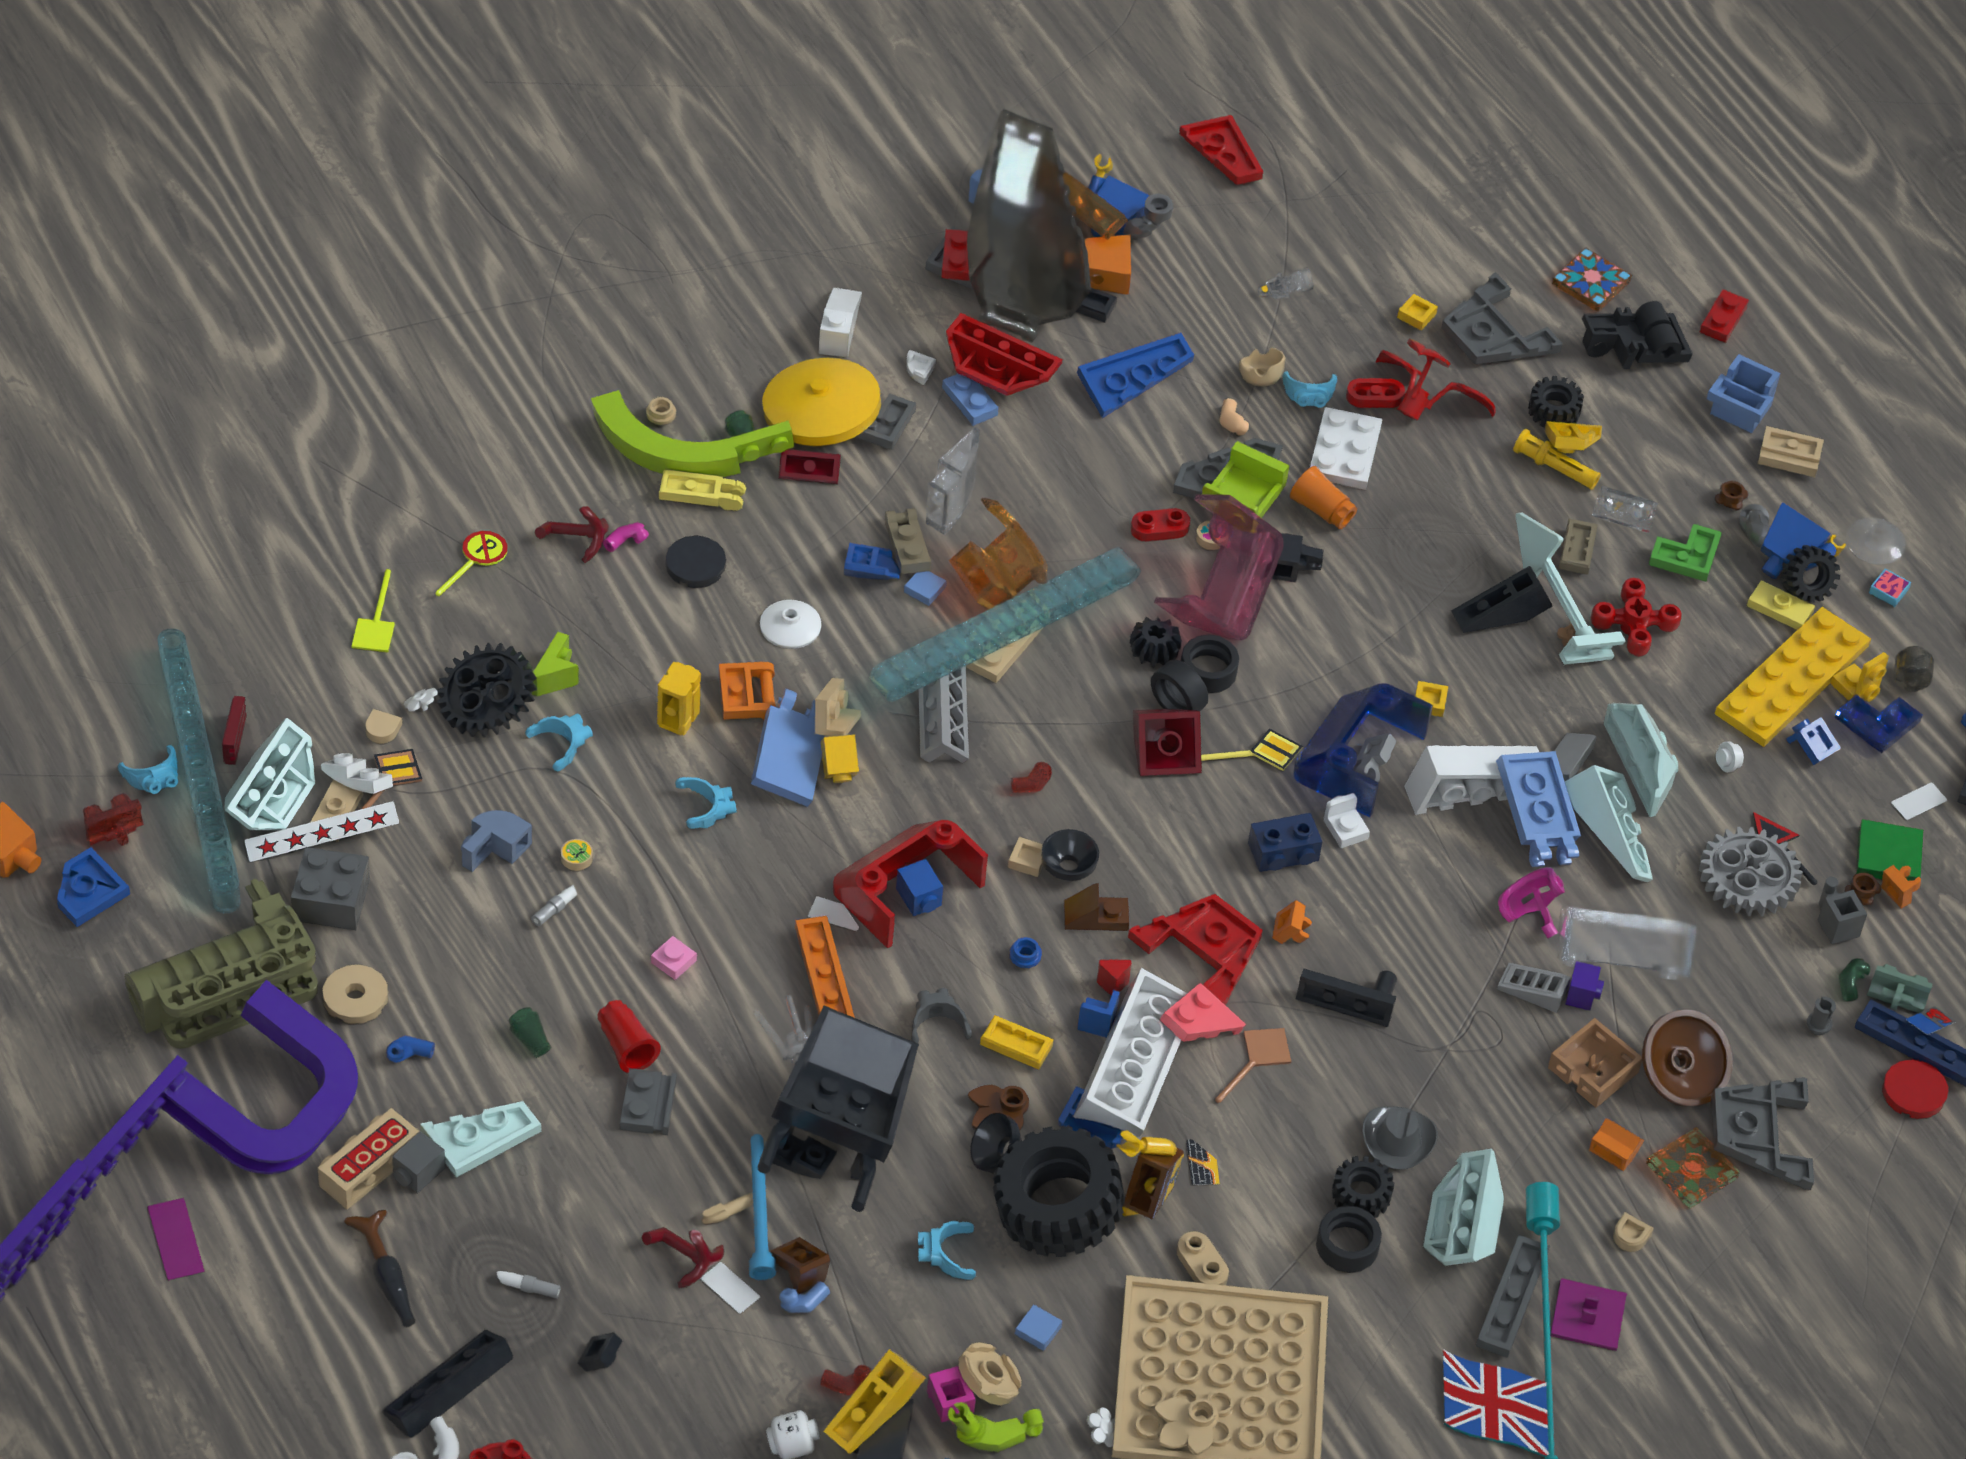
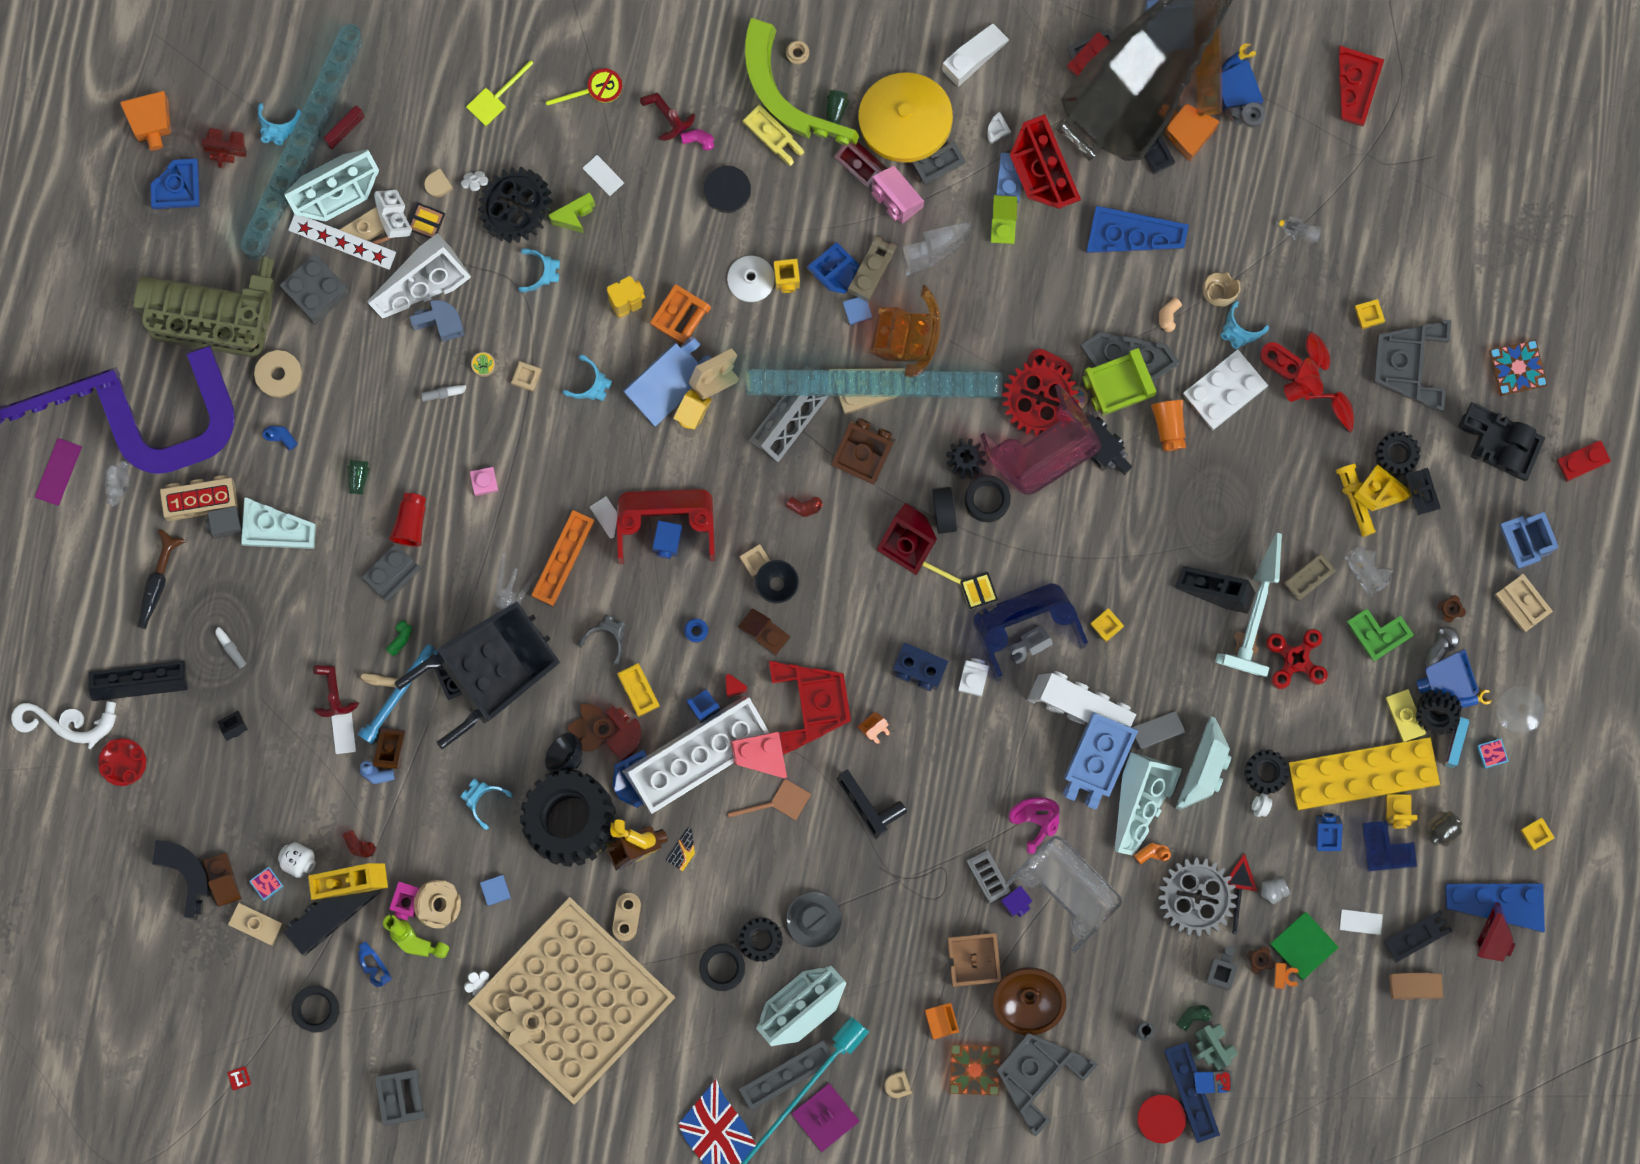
camera: 40 degrees right, 30 degrees up
(260, 1195) = (117, 482): none -> clear helmet
(440, 810) = (424, 274): none -> white wedge
(553, 623) = (603, 175): none -> white sticker
(633, 839) = (526, 376): none -> tan tile
(716, 1156) = (401, 640): none -> green arm
(828, 589) = (786, 275): none -> yellow brick
(874, 466) = (896, 194): none -> bright pink slope
(998, 430) = (1004, 219): none -> lime slope
(1045, 1086) = (629, 737): none -> clear red brick
(1048, 693) = (863, 450): none -> reddish brown plate
(1176, 548) = (1048, 377): none -> red gear
(1610, 415) = (1422, 491): none -> black hips
(1669, 861) = (1153, 851): none -> orange arm
(1704, 713) = (1256, 782): none -> black tyre
(1814, 818) = (1274, 889): none -> light grey arm
(1852, 596) = (1457, 743): none -> medium azure tile

